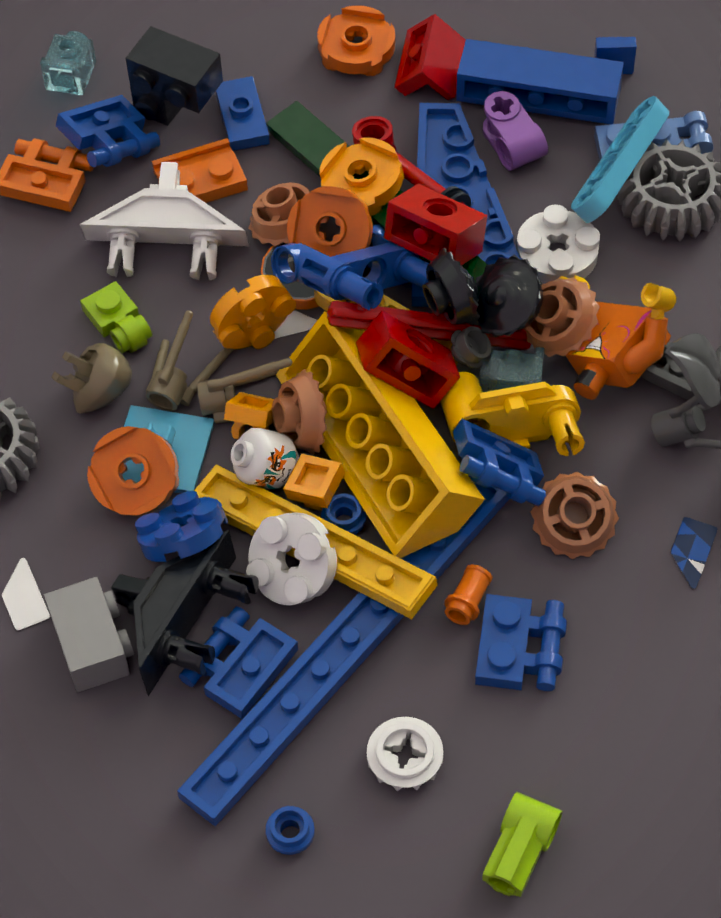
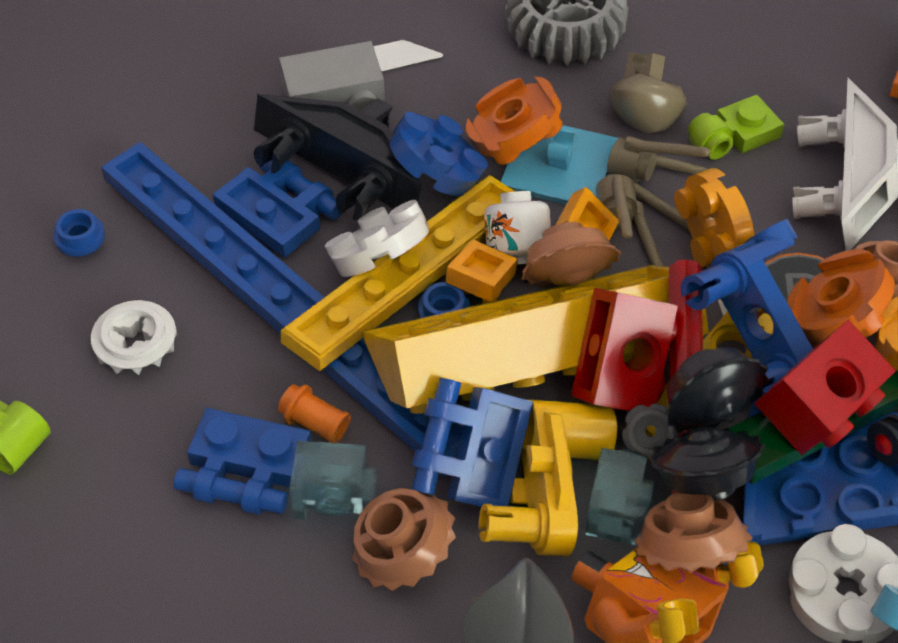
camera: 95 degrees right, 5 degrees down
(535, 568) = (331, 479): none -> clear light blue brick

